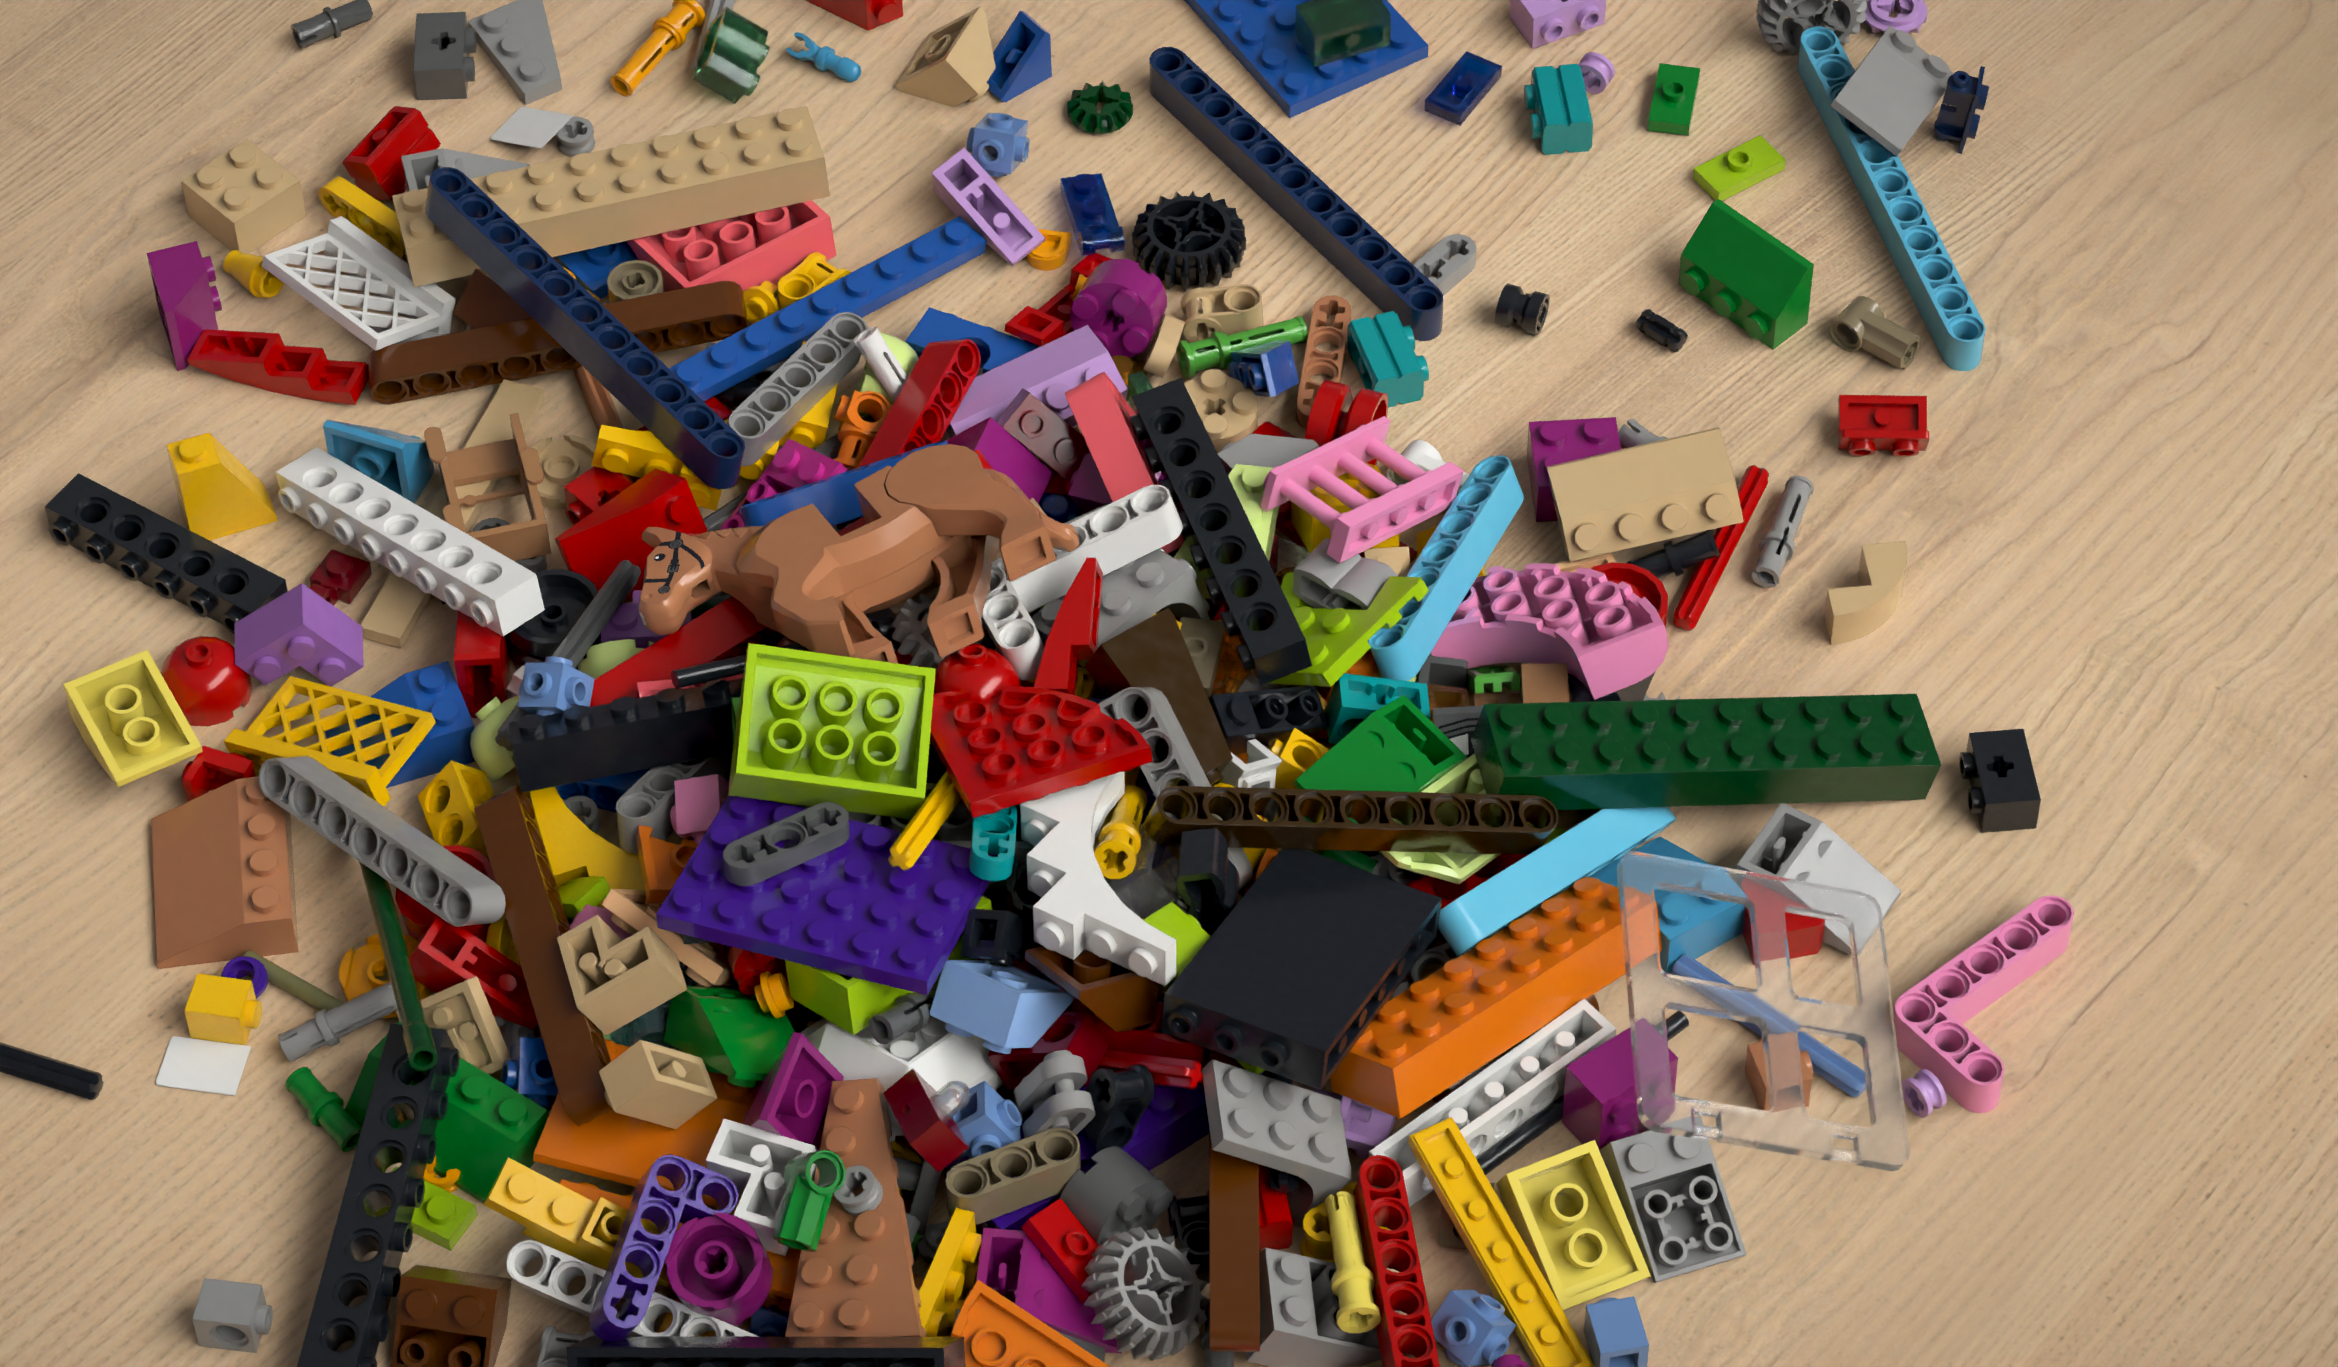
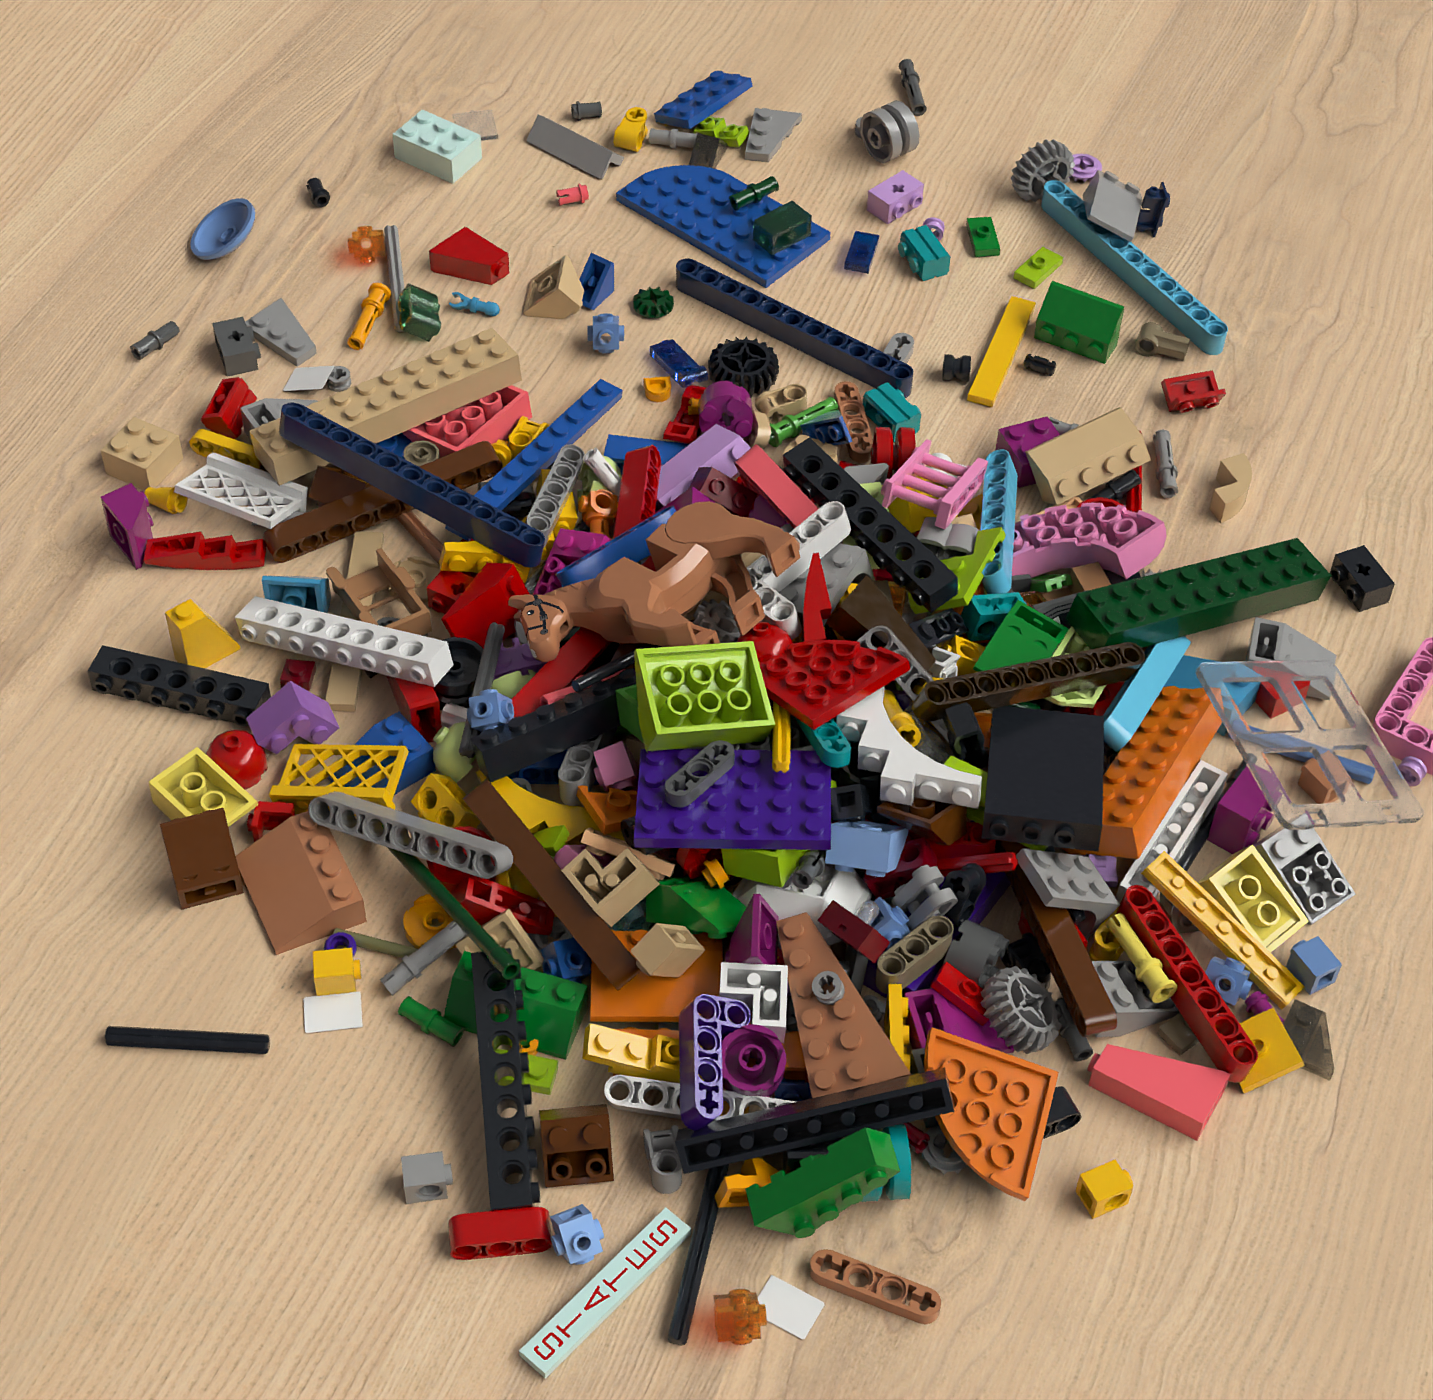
camera: 20 degrees left, 0 degrees up
(94, 809) = (202, 858): none -> reddish brown slope
(805, 1202) = (799, 991): green piece -> none
(985, 207) = (602, 362): lavender slope -> none
(1610, 297) = (1001, 351): none -> yellow tile

